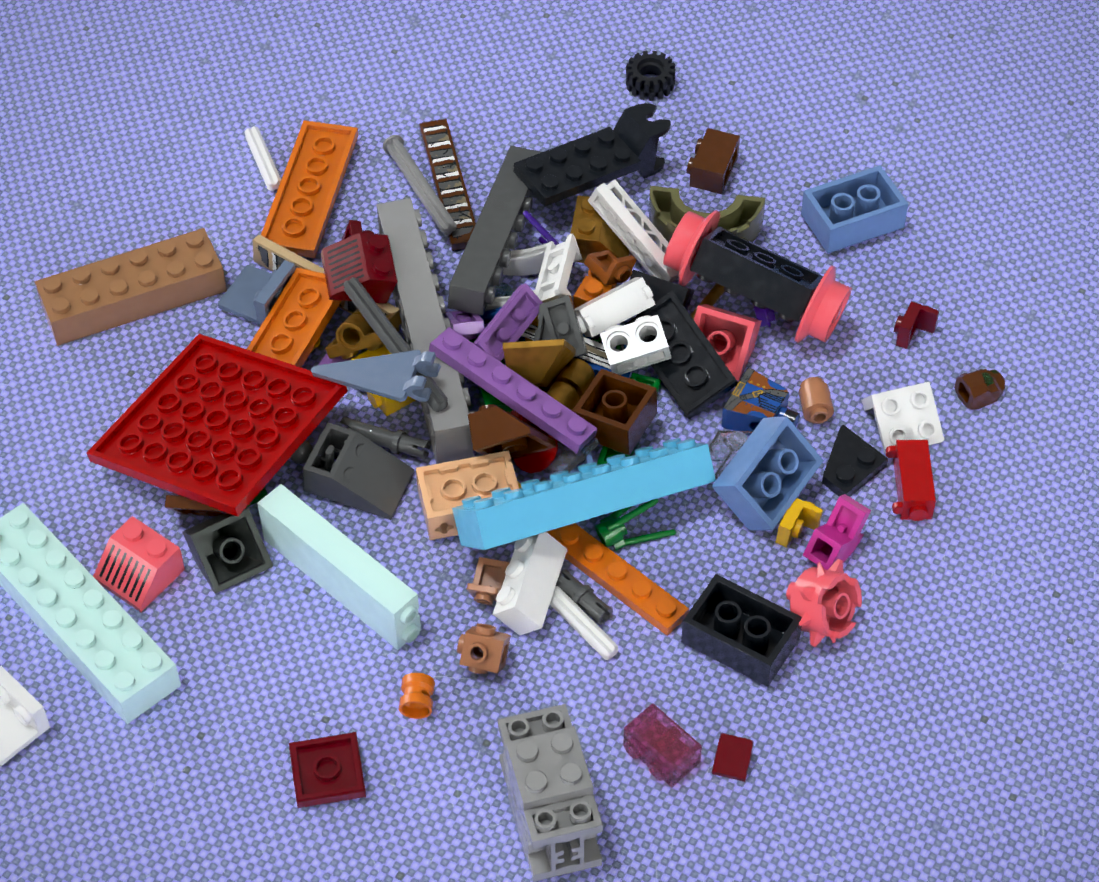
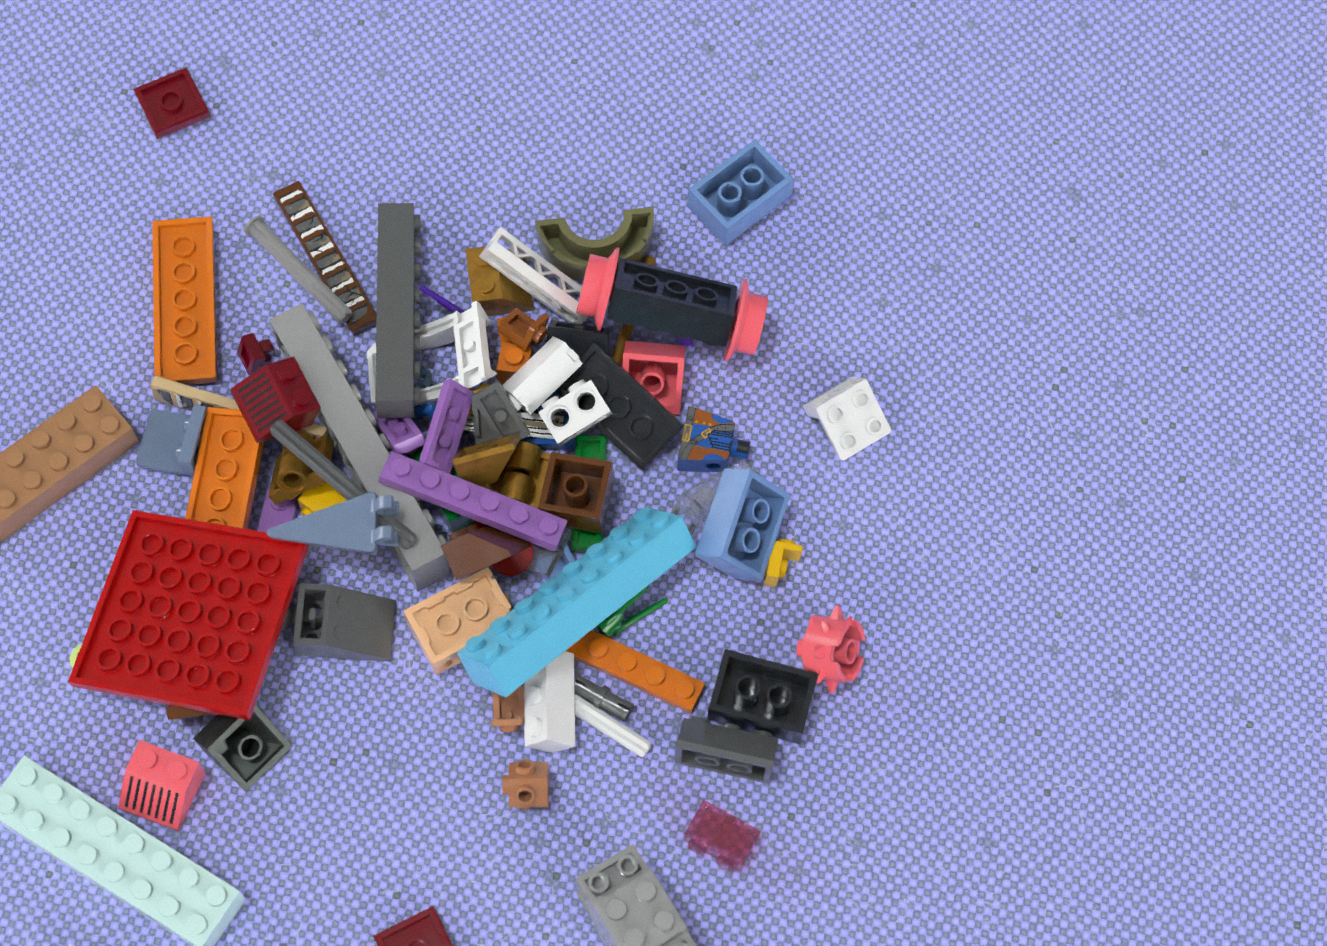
camera: 20 degrees left, 15 degrees up
(263, 158) = (123, 275): white axle -> none
(340, 567) = (362, 737): light aqua brick -> none
(355, 38) = (171, 103): none -> dark red plate
(396, 441) = (354, 574): dark grey pin -> none
(416, 698) = (478, 850): orange wheel -> none
(596, 157) = (469, 201): black hinge -> none
(650, 86) = (486, 62): black tyre -> none
(689, 670) = (726, 749): none -> dark grey slope
(713, 160) = (585, 165): reddish brown brick -> none
(733, 757) = (789, 828): dark red slope -> none
(815, 400) = (761, 421): nougat brick -> none
(839, 535) = (822, 568): dark pink brick -> none
(851, 463) = (811, 480): black wing -> none
(913, 479) = (875, 485): red brick -> none
(916, 317) = (832, 299): dark red bracket -> none
(979, 388) = (910, 364): reddish brown rock -> none

